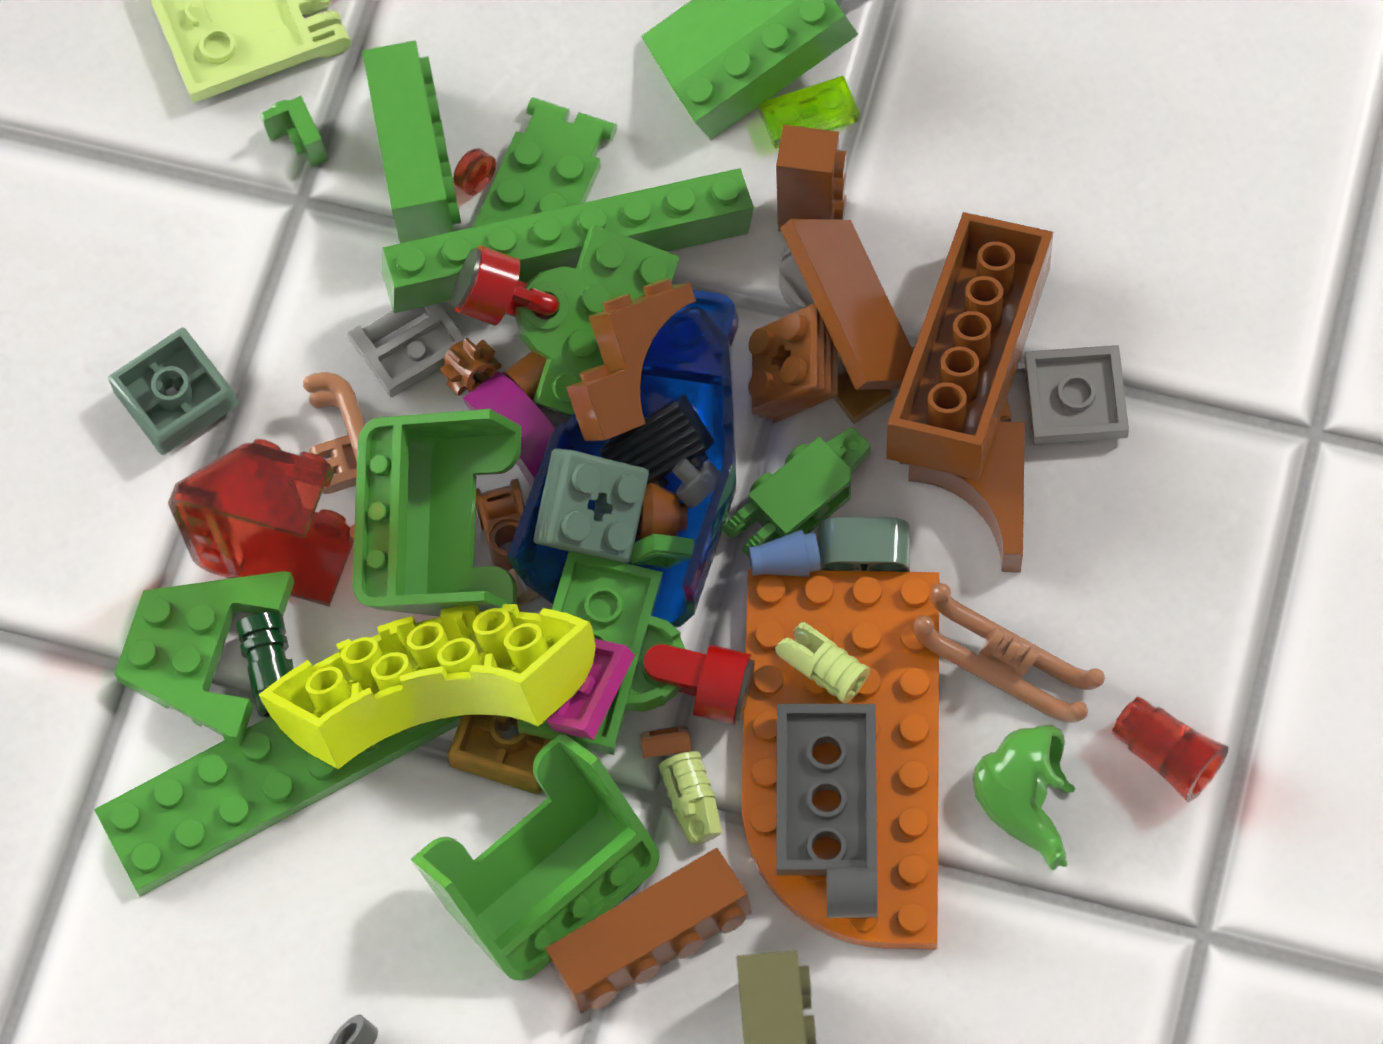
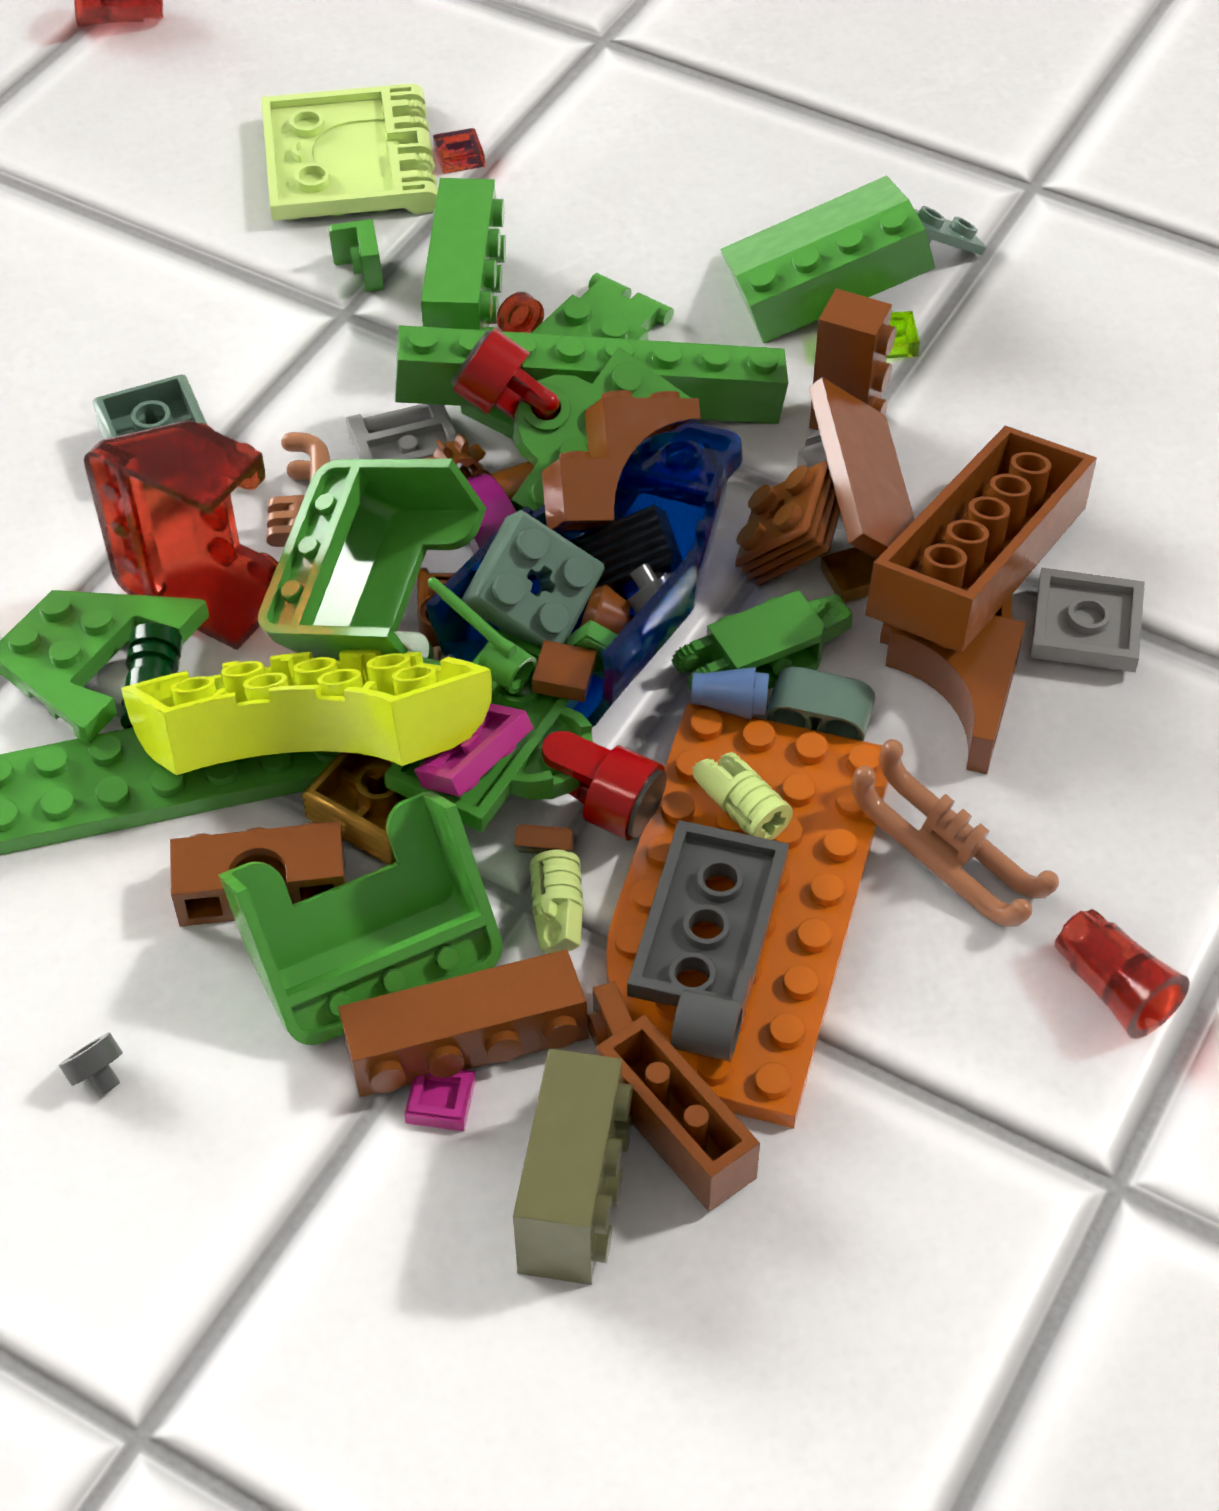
camera: 10 degrees right, 15 degrees down
(391, 839) = (305, 856): none -> dark orange arch
(588, 590) = (508, 663): none -> bright green plant
(641, 583) = (564, 671): none -> dark orange tile
(648, 1000) = (441, 1101): none -> dark pink tile
(769, 900) = (608, 1013): none -> dark orange plate
(847, 969) = (683, 1115): none -> dark orange brick
(1015, 785) = (930, 970): bright green piece -> none

